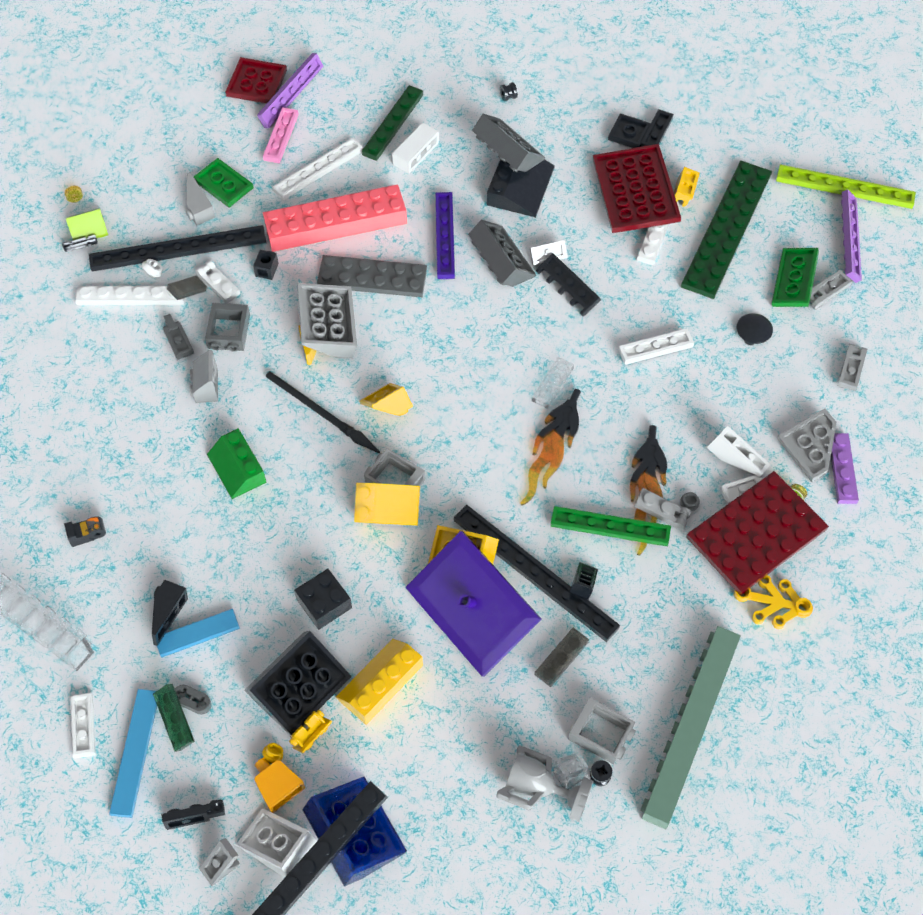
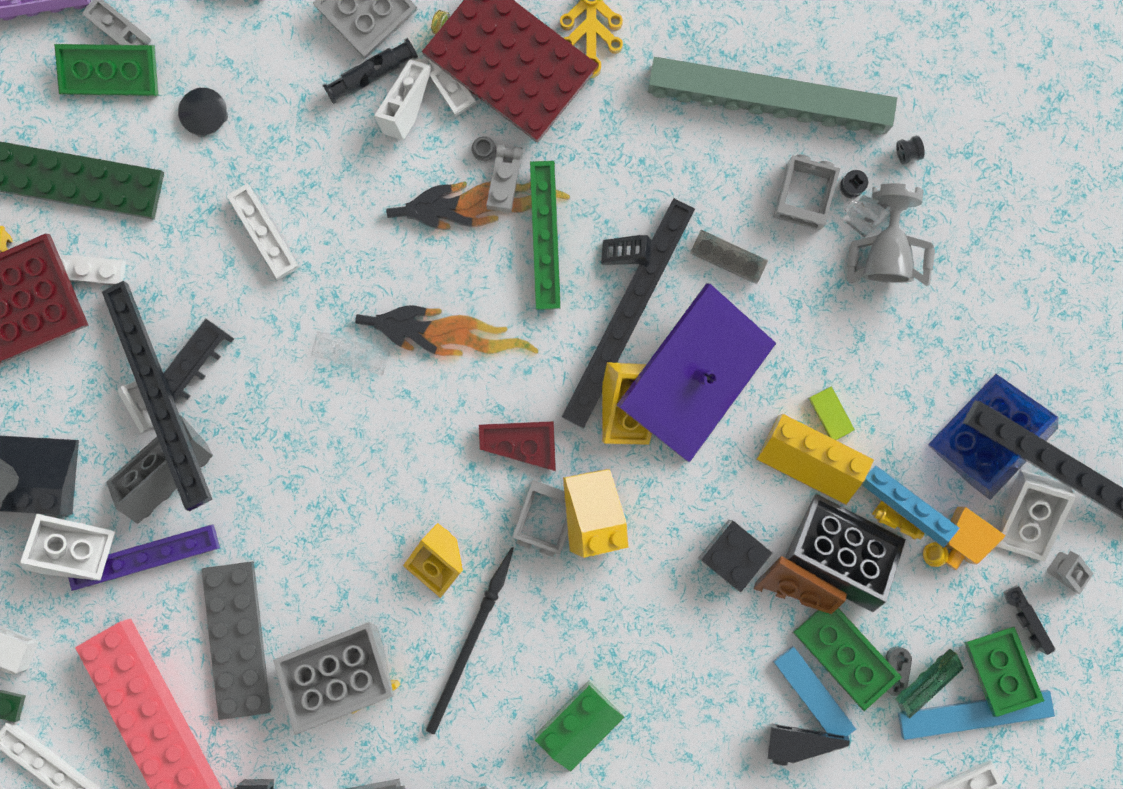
camera: 100 degrees left, 25 degrees up
(160, 779) = (1004, 672): none -> green plate
(218, 662) = (847, 656): none -> green tile
(287, 633) = (795, 582): none -> dark orange wing
(318, 737) = (910, 506): none -> dark azure plate
(412, 704) = (831, 413): none -> lime tile
(455, 476) = (521, 441): none -> dark red wing
(464, 192) = (66, 548): none -> white slope
(551, 255) = (157, 397): none -> black plate
(620, 828) = (910, 149): none -> black wheel
(765, 436) = (365, 73): none -> black piece

